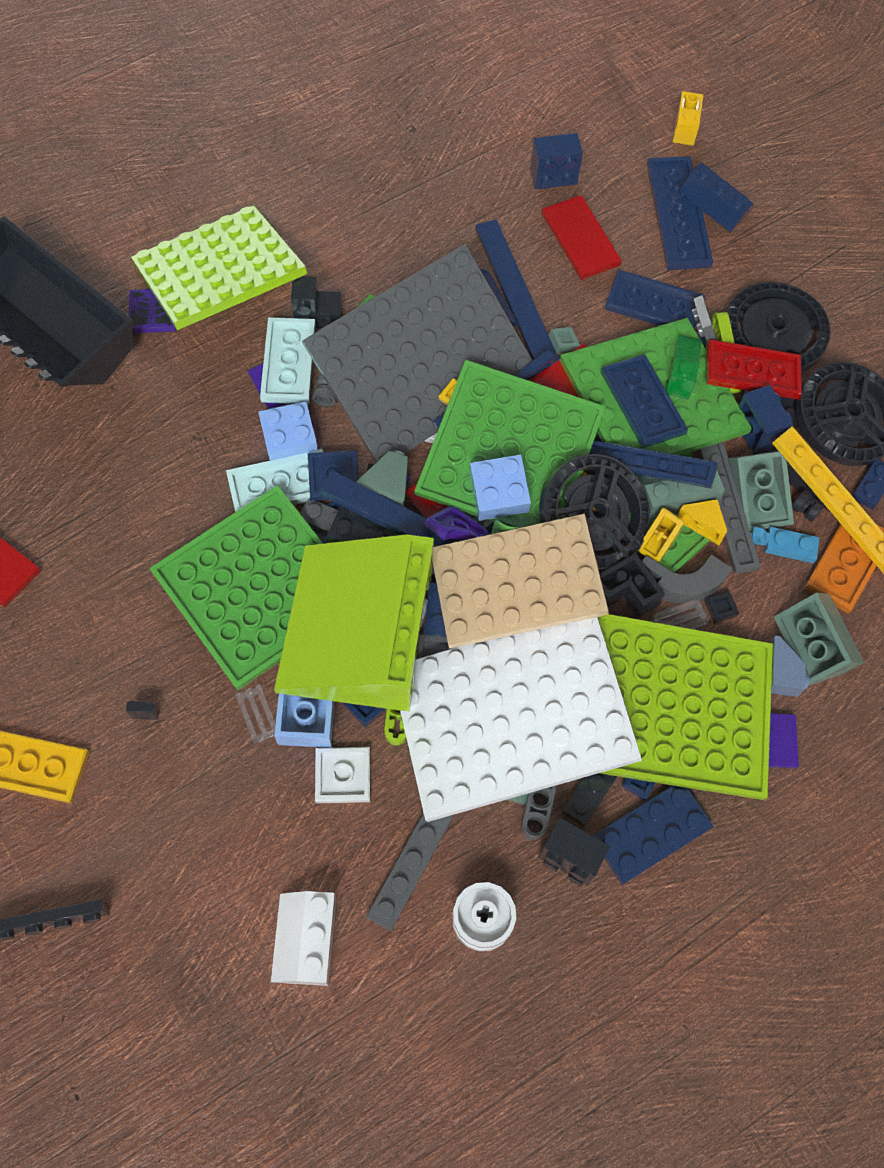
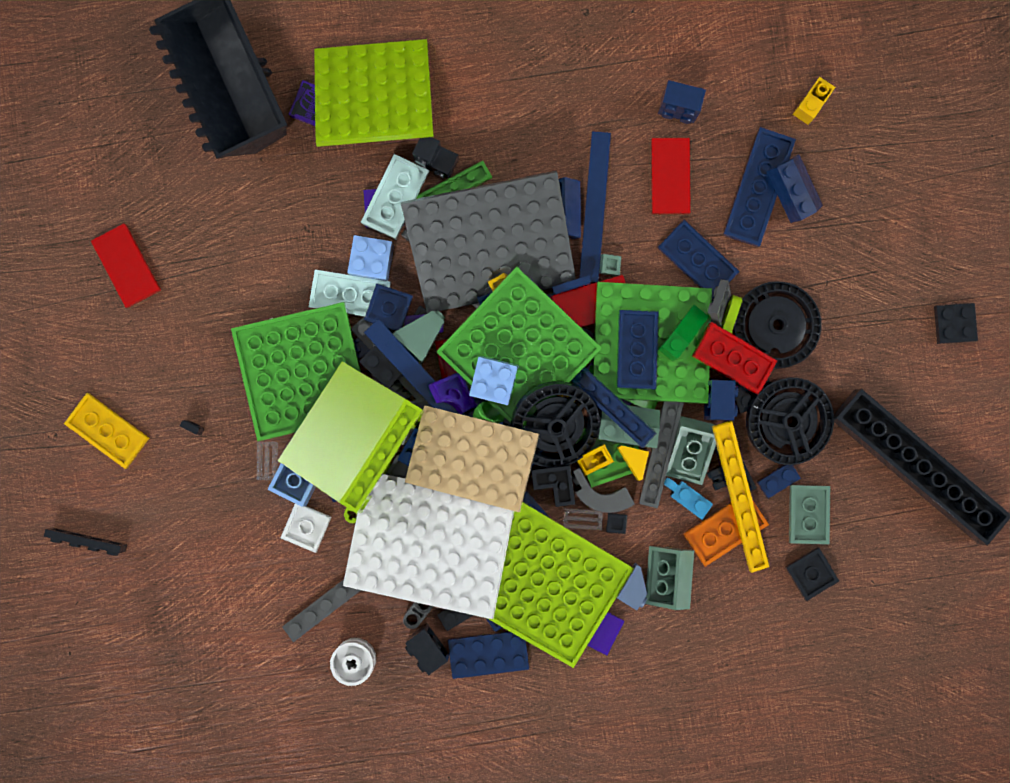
camera: 30 degrees right, 20 degrees up
(304, 938) = (238, 623): white slope -> none

